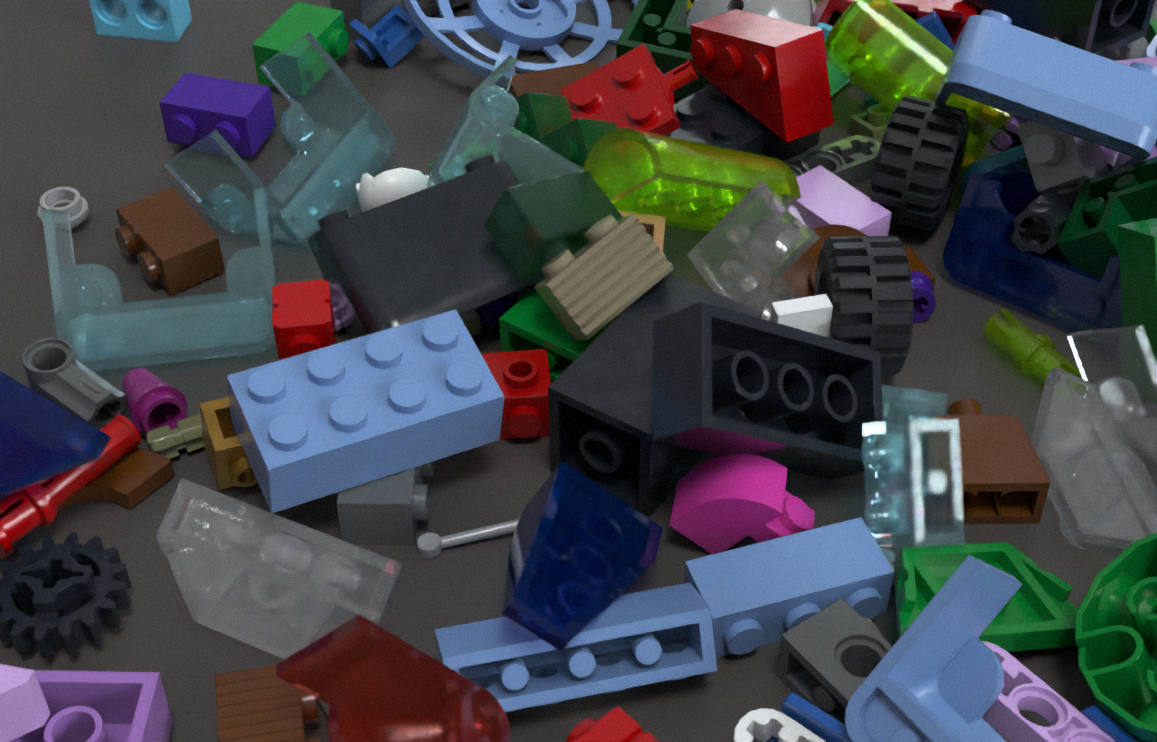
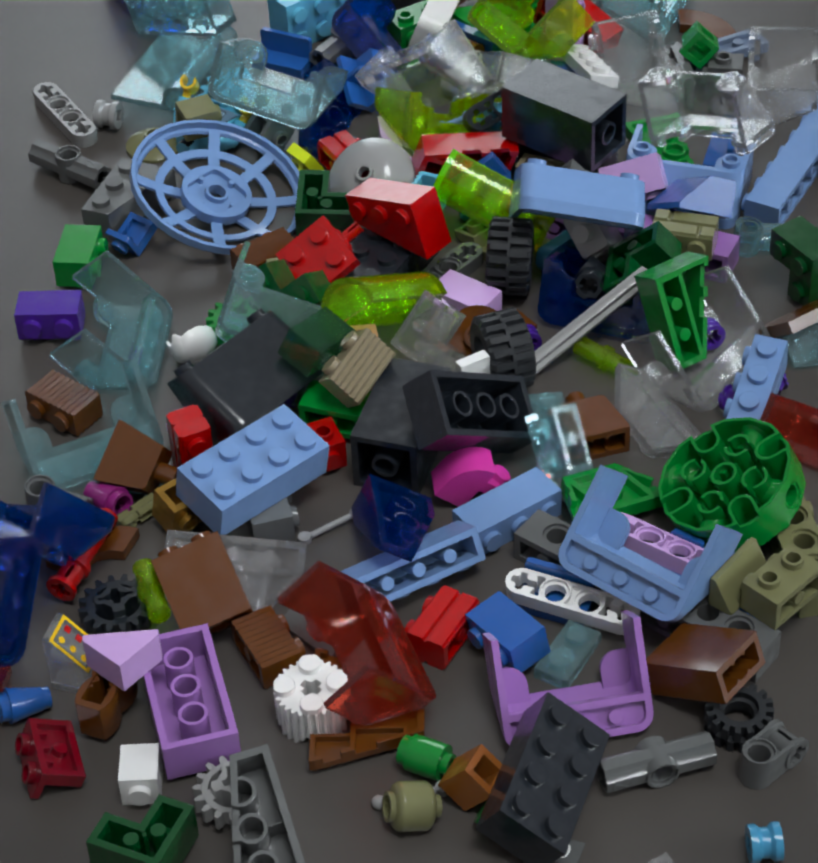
camera: 15 degrees left, 0 degrees up
(110, 582) = (151, 591): none -> clear neon green pin
(193, 594) = (202, 583): none -> reddish brown brick
(207, 342) = (135, 461): none -> reddish brown torso
(1016, 288) = (587, 321): none -> light grey axle

